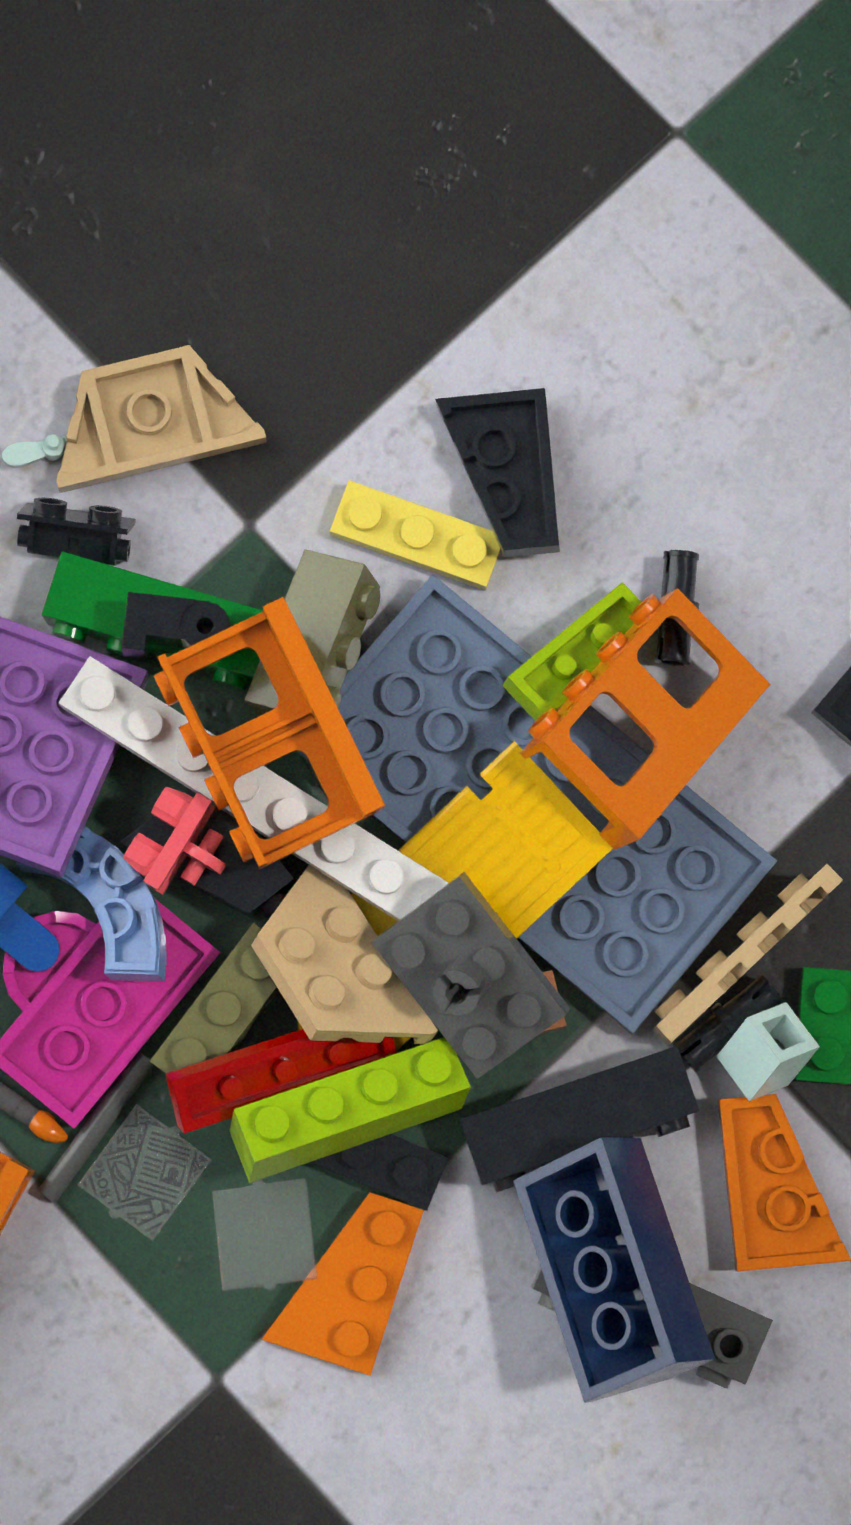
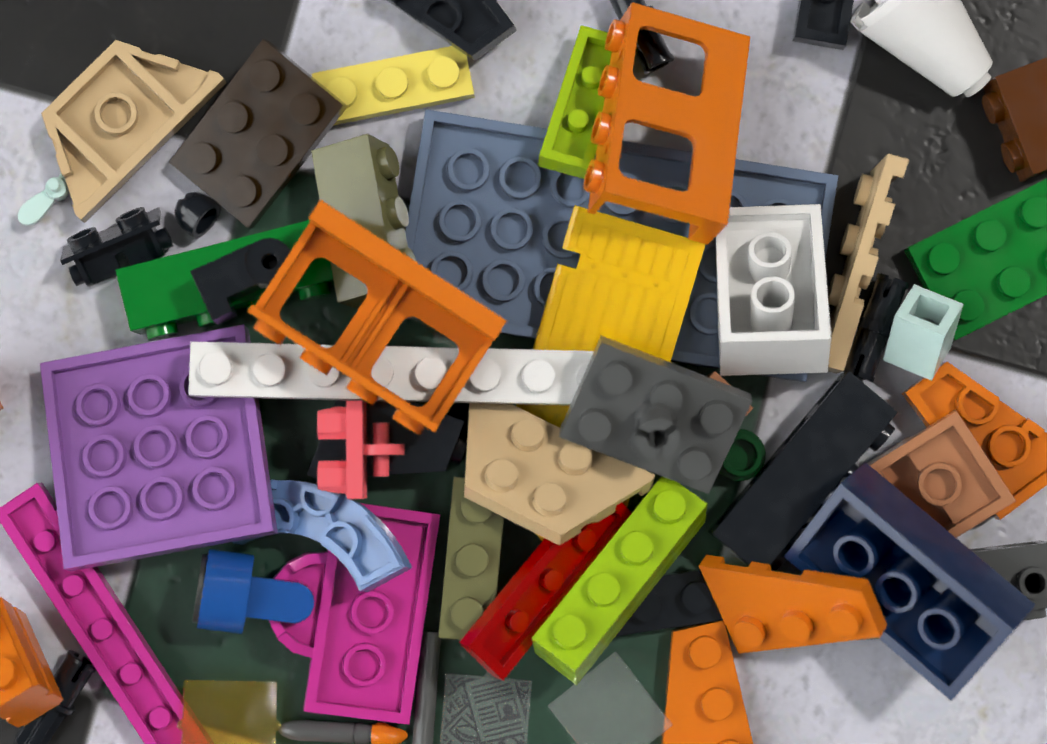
camera: 30 degrees left, 5 degrees up
(166, 545) = (196, 213): none -> black hinge
(266, 506) = (258, 133): none -> dark brown plate
(488, 1232) = (790, 610): none -> orange wing
(532, 1067) = (744, 457): none -> dark green plate
(647, 928) = (772, 291): none -> white slope
(709, 1197) = (946, 475): none -> nougat plate

